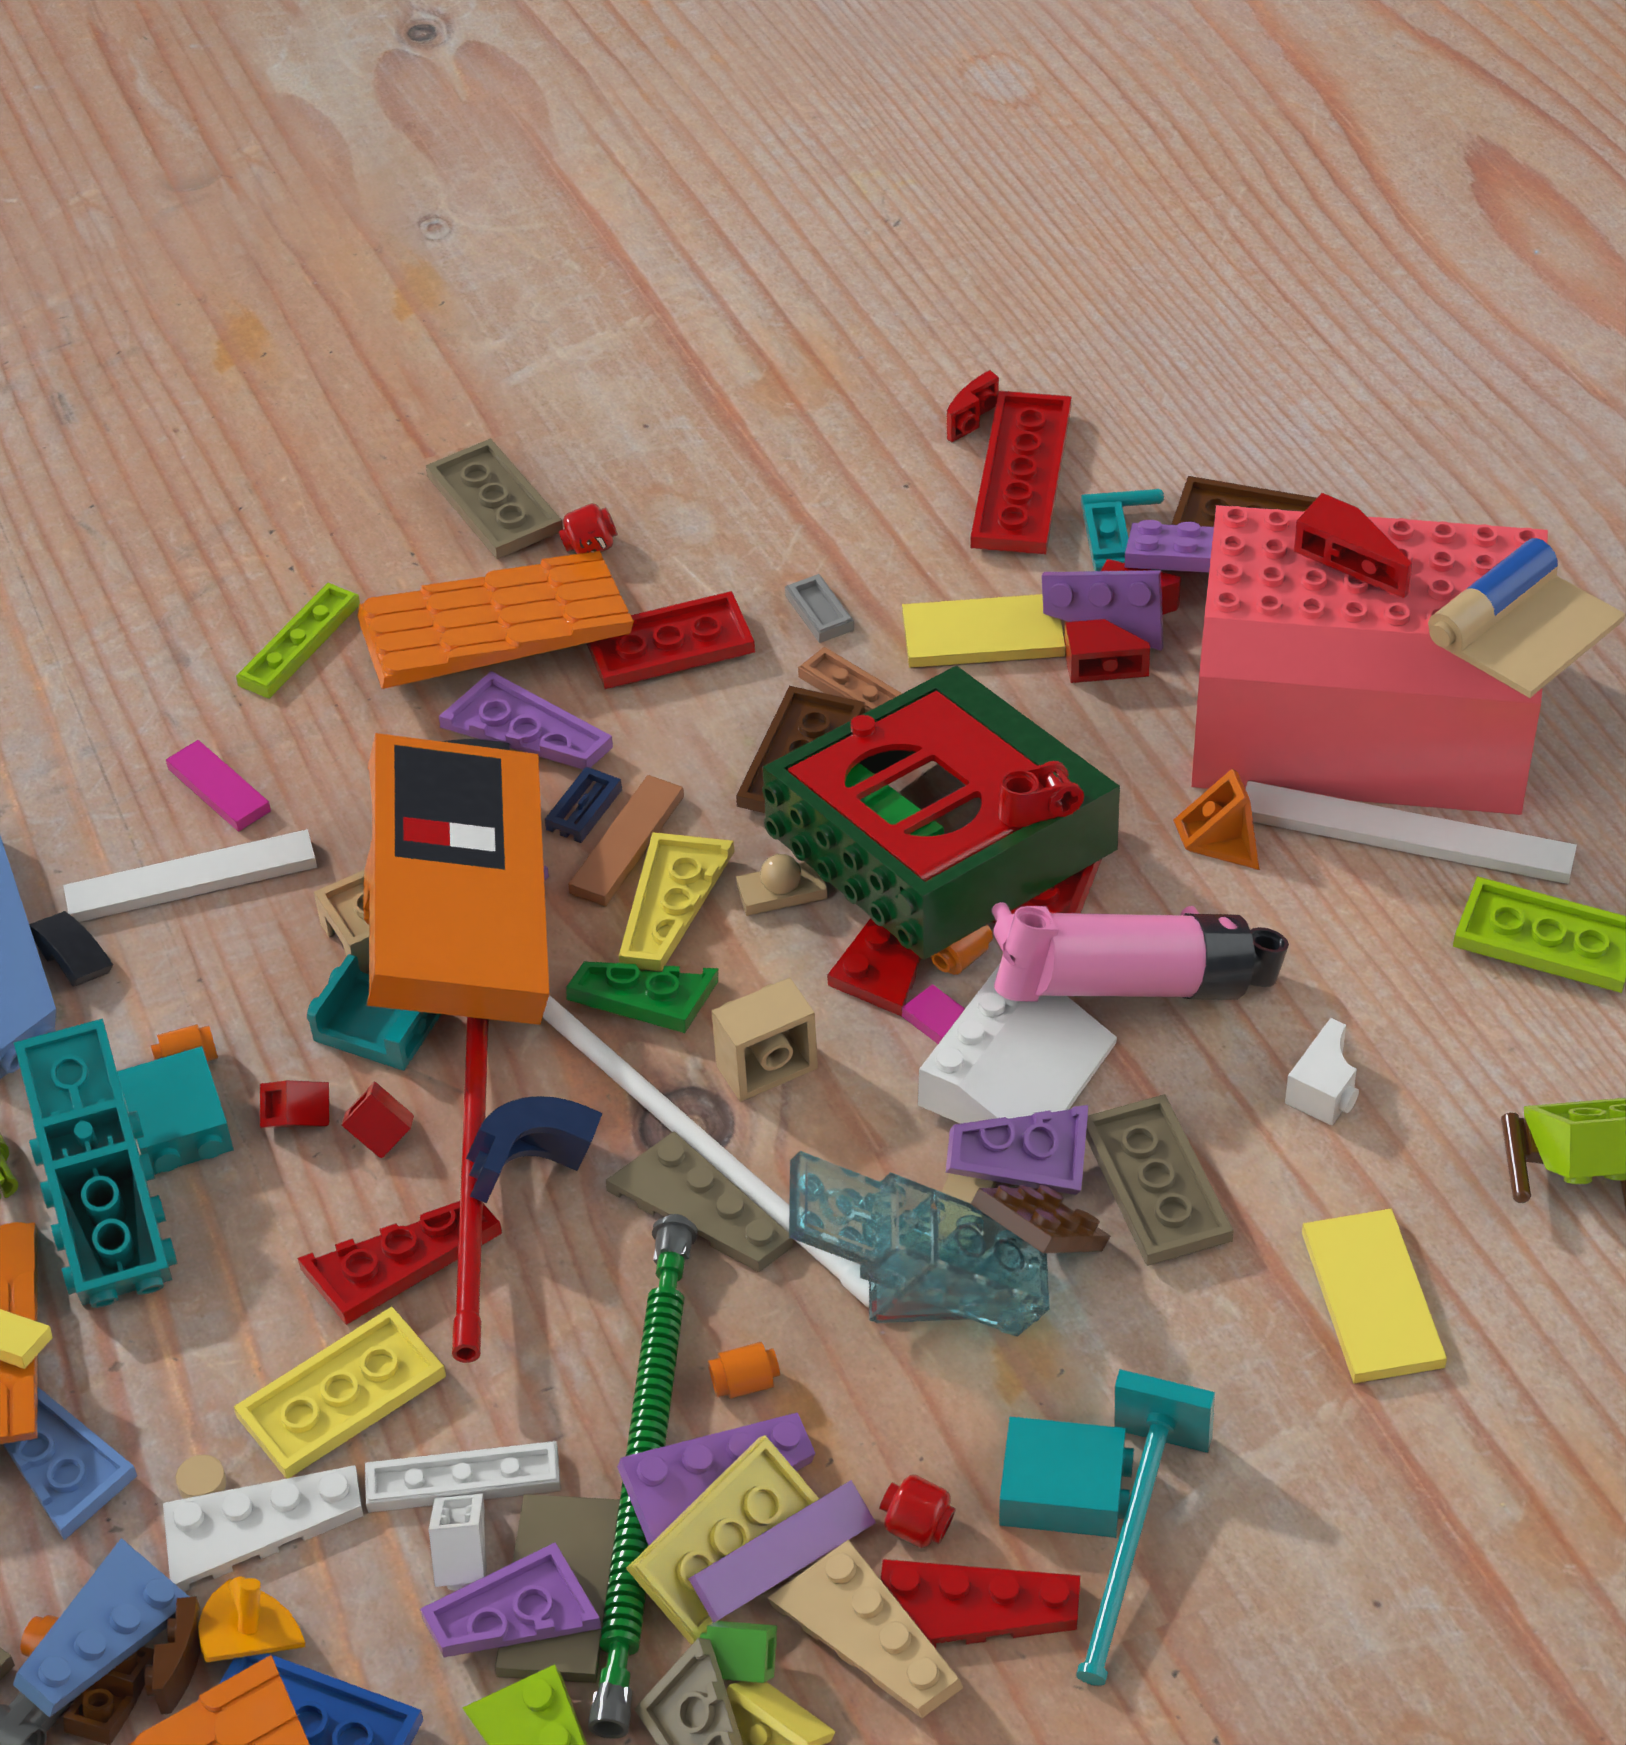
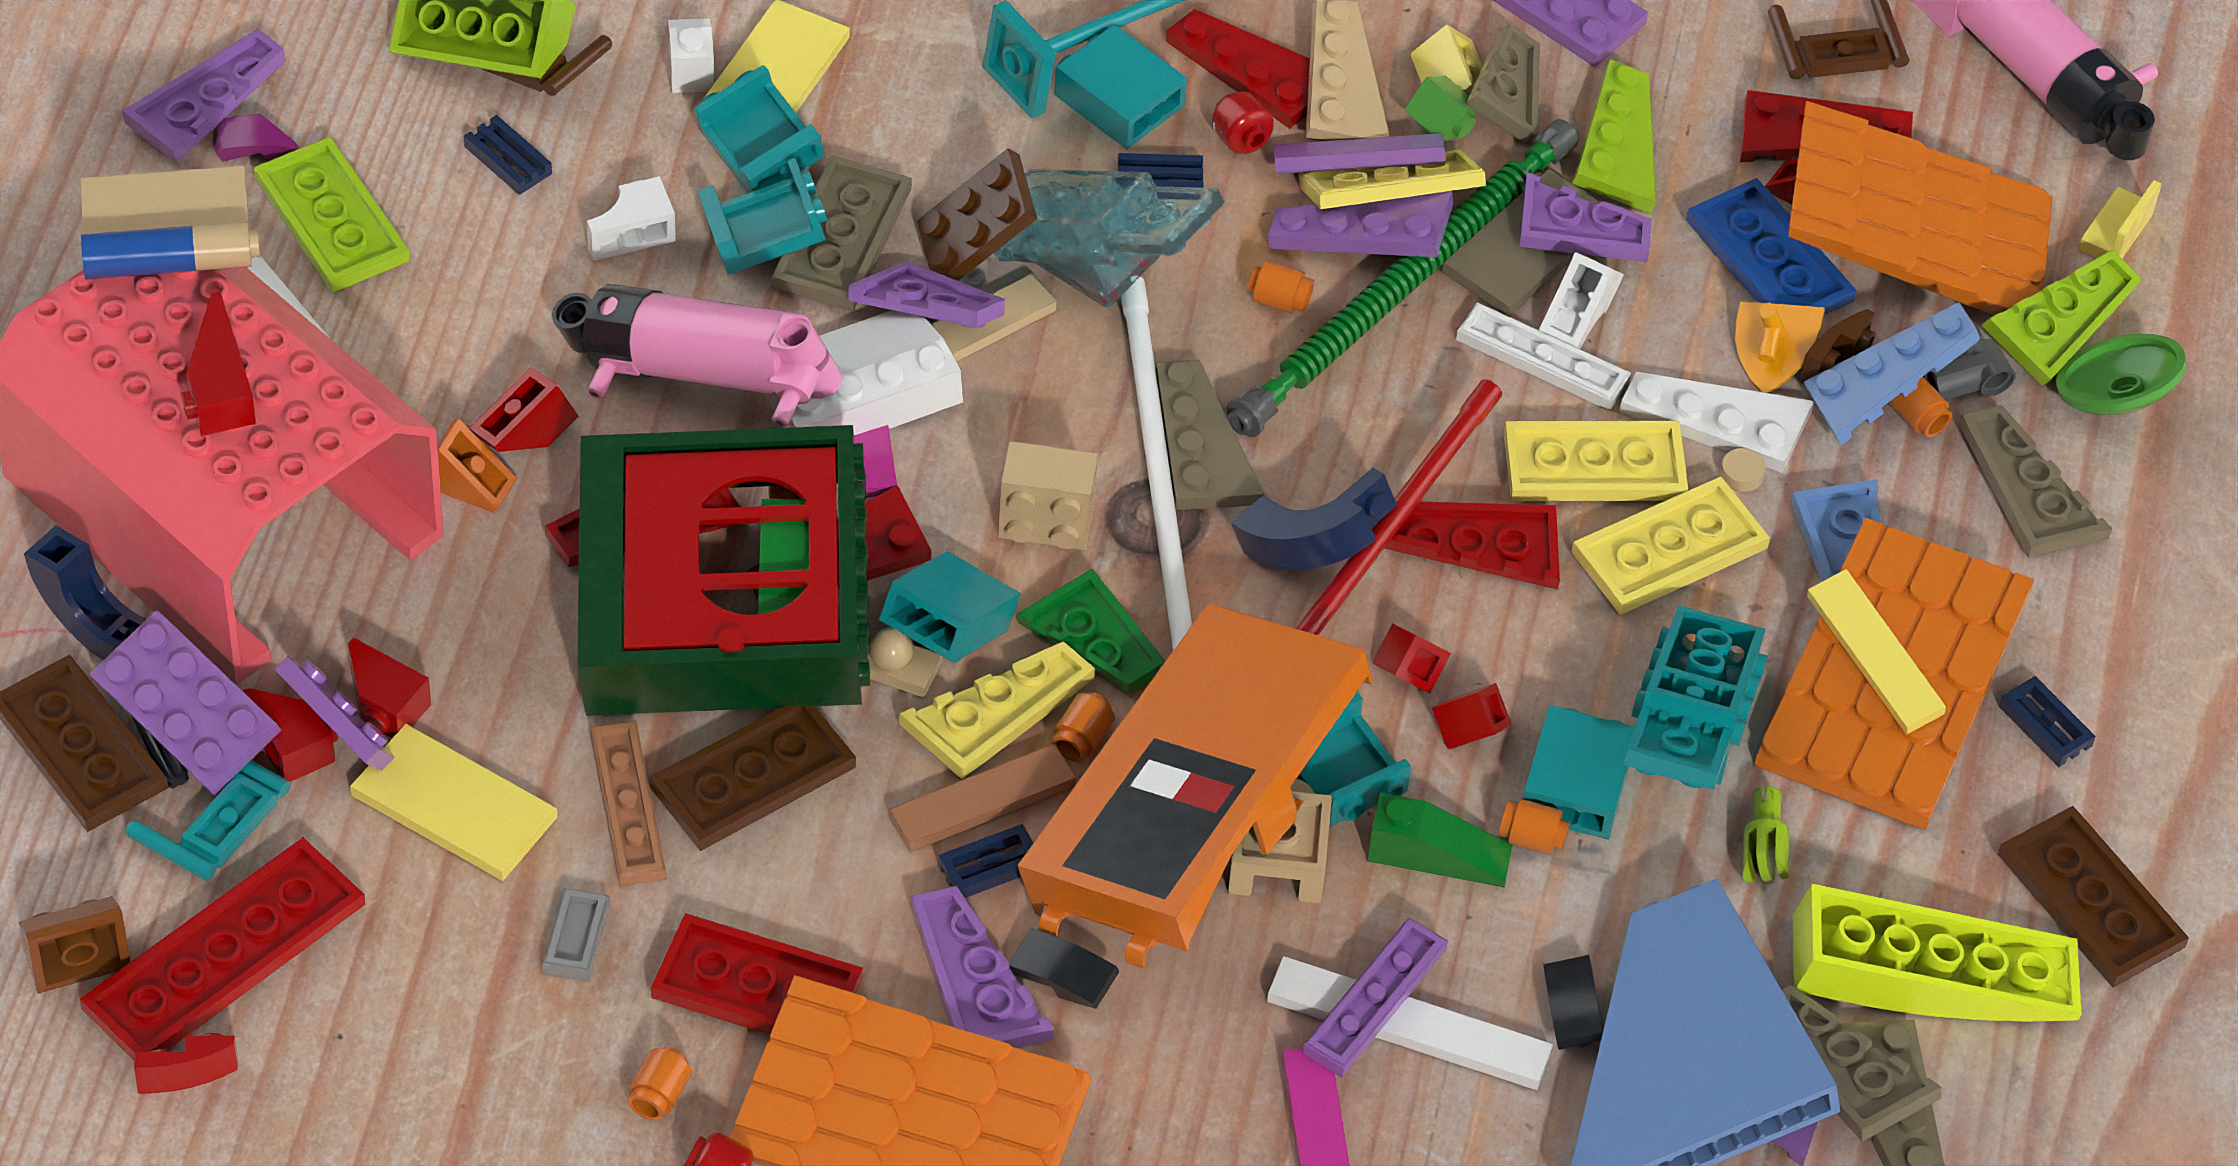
camera: 150 degrees left, 5 degrees up
(219, 1356) = (1670, 545): none -> light yellow plate
(222, 863) = (1375, 997): none -> medium lavender tile
(258, 992) = (1432, 841): none -> green slope
(593, 918) = (1083, 726): none -> orange brick
(673, 551) = (659, 1083): none -> orange brick
(760, 915) = (950, 606): none -> teal brick
(944, 1419) = (1165, 167): none -> dark blue tile
(1034, 795) = (670, 443): red piece -> none
(1110, 410) = (75, 943): none -> dark orange slope
(1216, 864) = (526, 415): none -> red slope
(1223, 1125) = (765, 220): none -> teal panel
(1306, 1205) = (757, 131): none -> teal panel
(1450, 1250) = (691, 55): none -> white arch
(1490, 1071) = (513, 150): none -> dark blue tile

